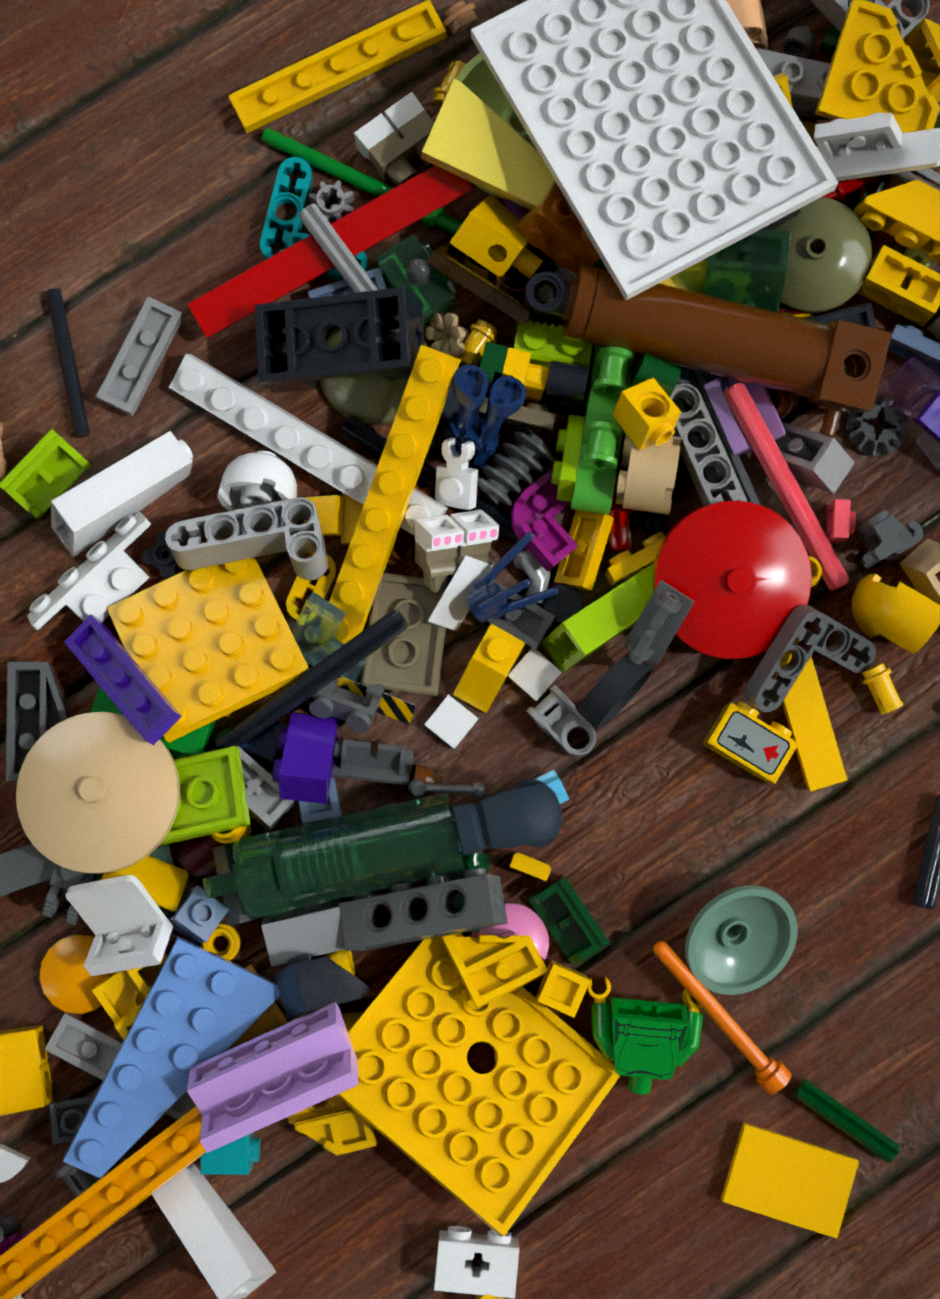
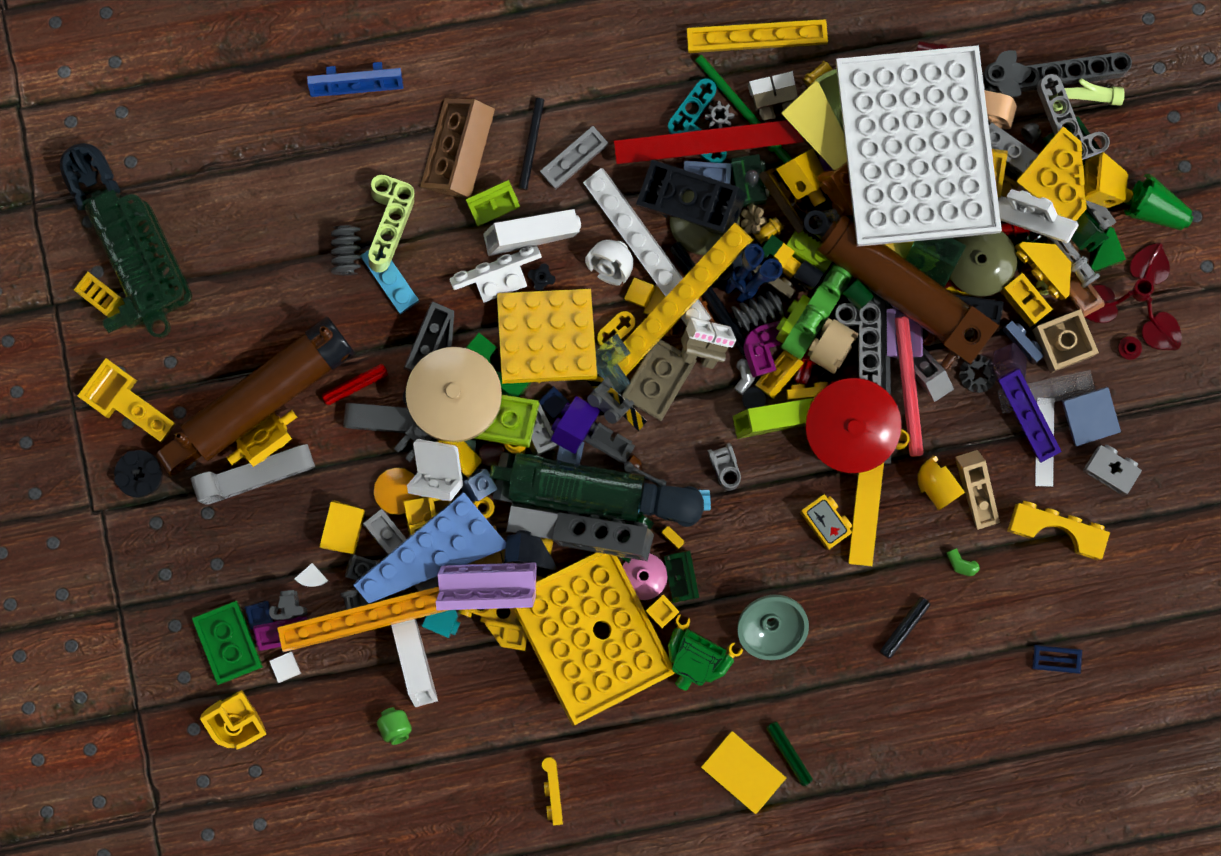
camera: 25 degrees right, 0 degrees up
(122, 679) = (491, 337): dark purple plate -> none
(190, 552) = (592, 291): light grey beam -> none
(312, 680) = (595, 383): black axle -> none
(336, 249) = (711, 148): light grey axle -> none
(451, 721) = (663, 439): white tile -> none
(453, 603) = (699, 369): white sticker -> none
(454, 480) = (722, 303): white plate -> none
(460, 17) = (839, 36): medium nougat plate -> none
(488, 668) = (696, 418): yellow slope -> none
(491, 601) = (714, 380): dark blue plant -> none
(494, 964) = (629, 582): yellow wing -> none
(496, 1271) = (537, 740): white brick -> none
(526, 623) = (723, 393): dark grey plate -> none
(534, 674) = (721, 432): white tile -> none
(614, 691) = (762, 459): black tyre -> none
(646, 414) = (843, 305): yellow brick -> none
(658, 624) = (800, 432): dark grey hinge -> none
(770, 1074) = (757, 707): orange piece -> none
(811, 639) = (883, 477): dark grey beam -> none
(839, 521) = (932, 419): coral plate -> none
(882, 688) = (914, 523): yellow pin -> none
(886, 538) = (951, 439): dark grey piece -> none

